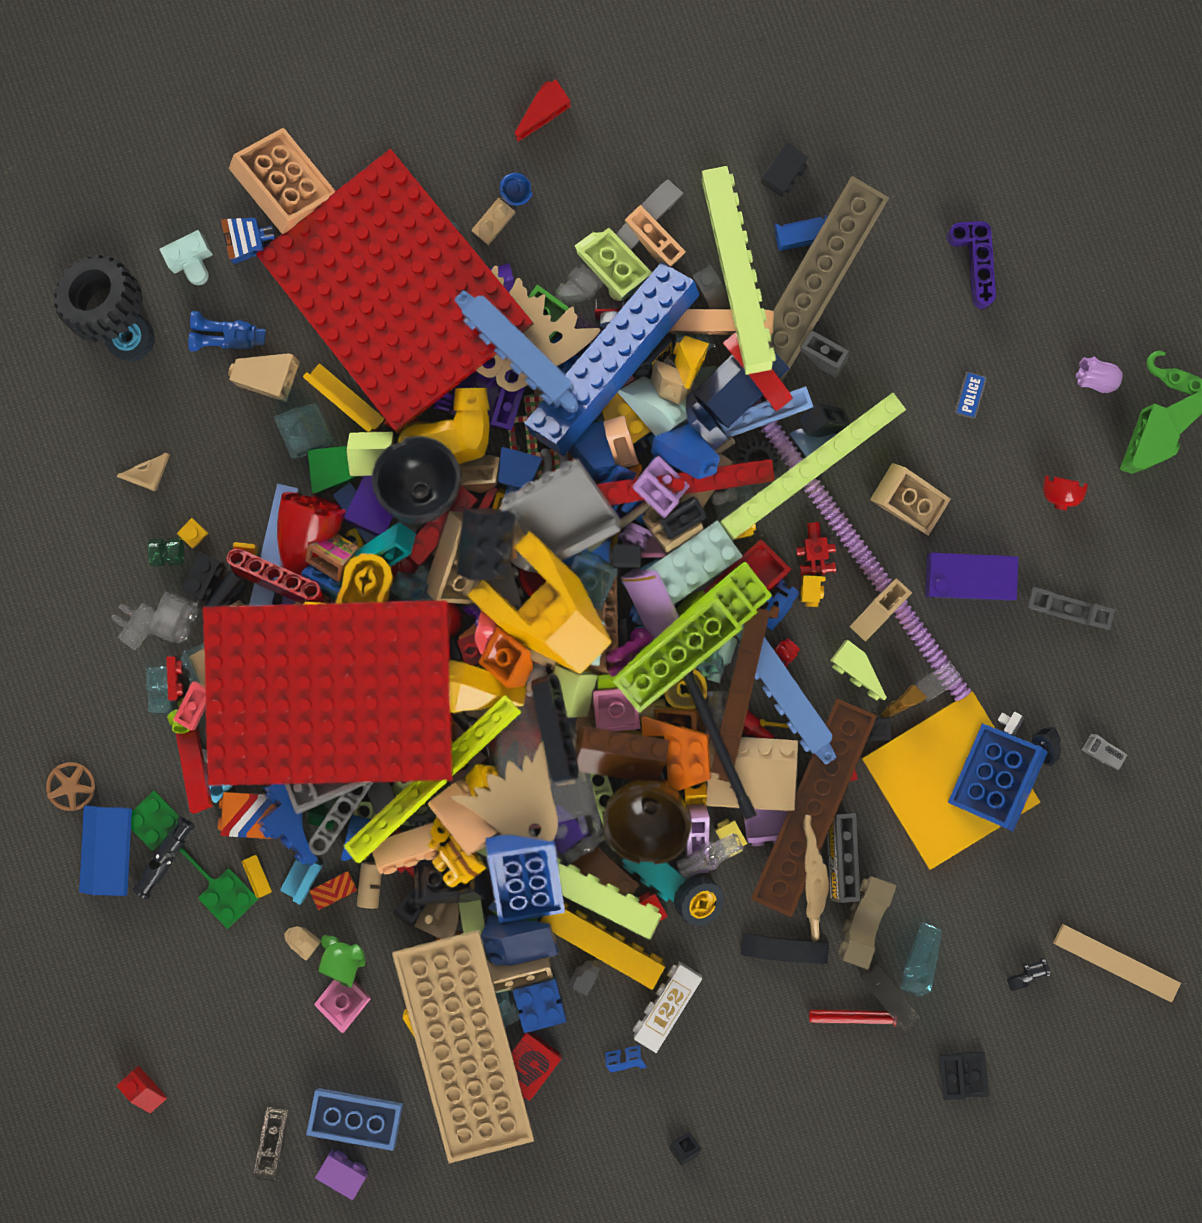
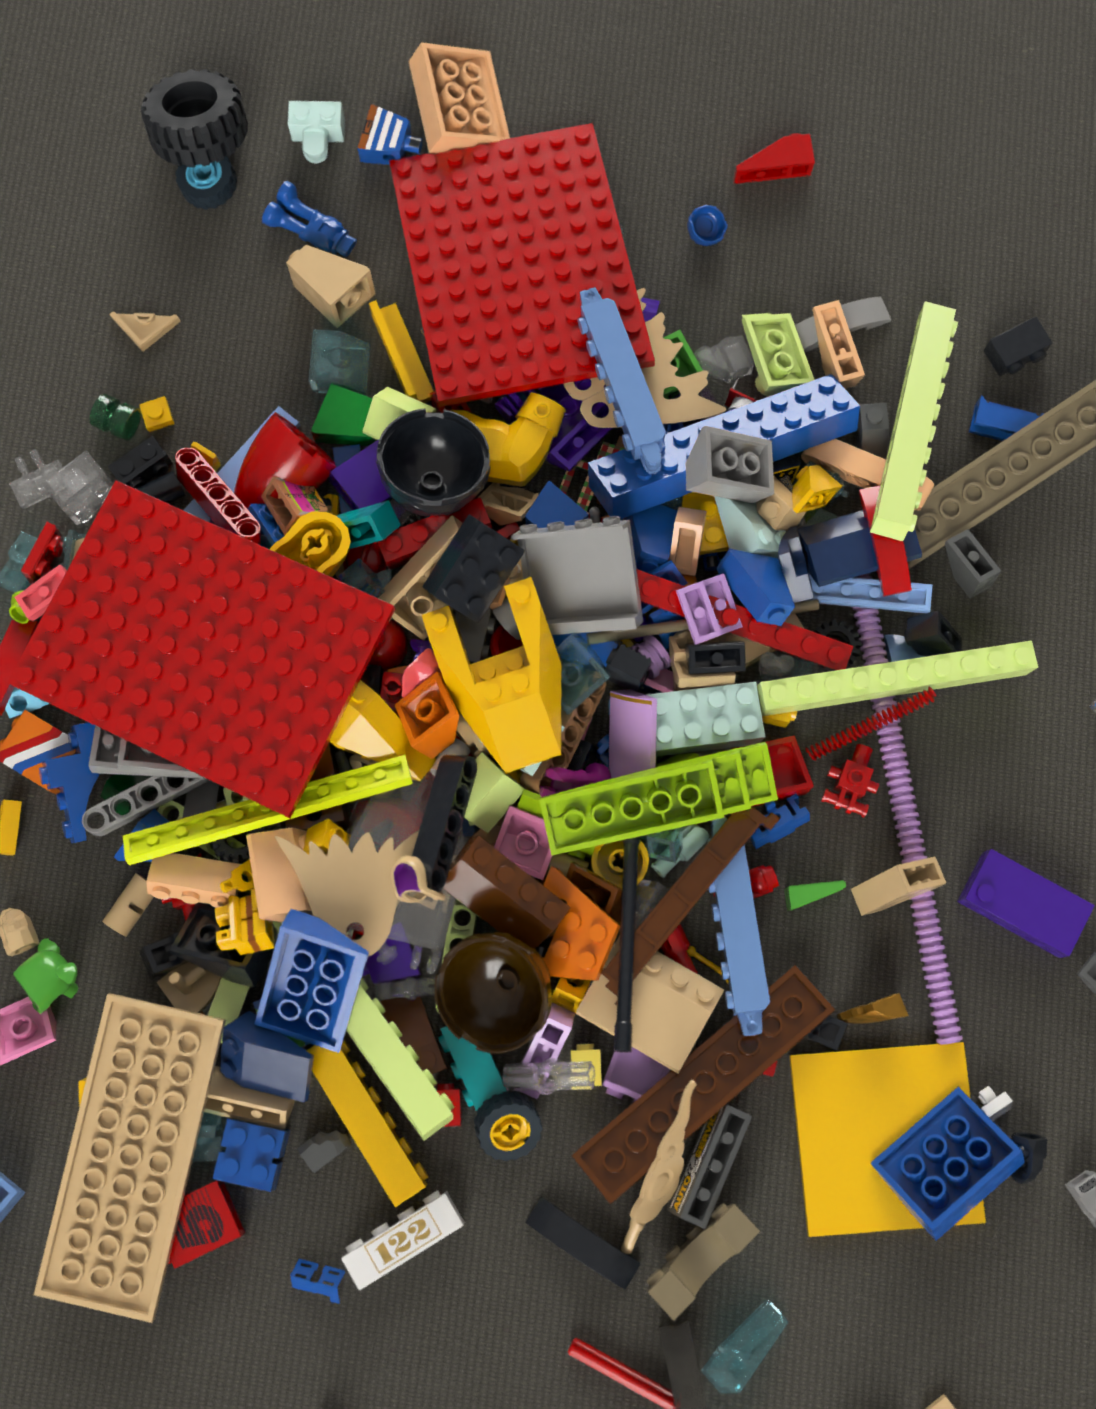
camera: 25 degrees right, 10 degrees down
(300, 880) = (57, 859): medium azure panel -> none
(333, 890) = (86, 890): tile -> none
(493, 221) = (664, 249): tan tile -> none
(553, 777) = (410, 875): none -> tan piece
(626, 376) = (730, 466): none -> light grey slope
(811, 508) = (855, 733): none -> red piece
(811, 590) = (826, 823): yellow brick -> none
(821, 645) = (804, 894): none -> bright green slope
(857, 666) = (838, 941): yellowish green slope -> none
(910, 498) = (993, 776): tan slope -> none
(938, 681) = (930, 1008): clear slope -> none

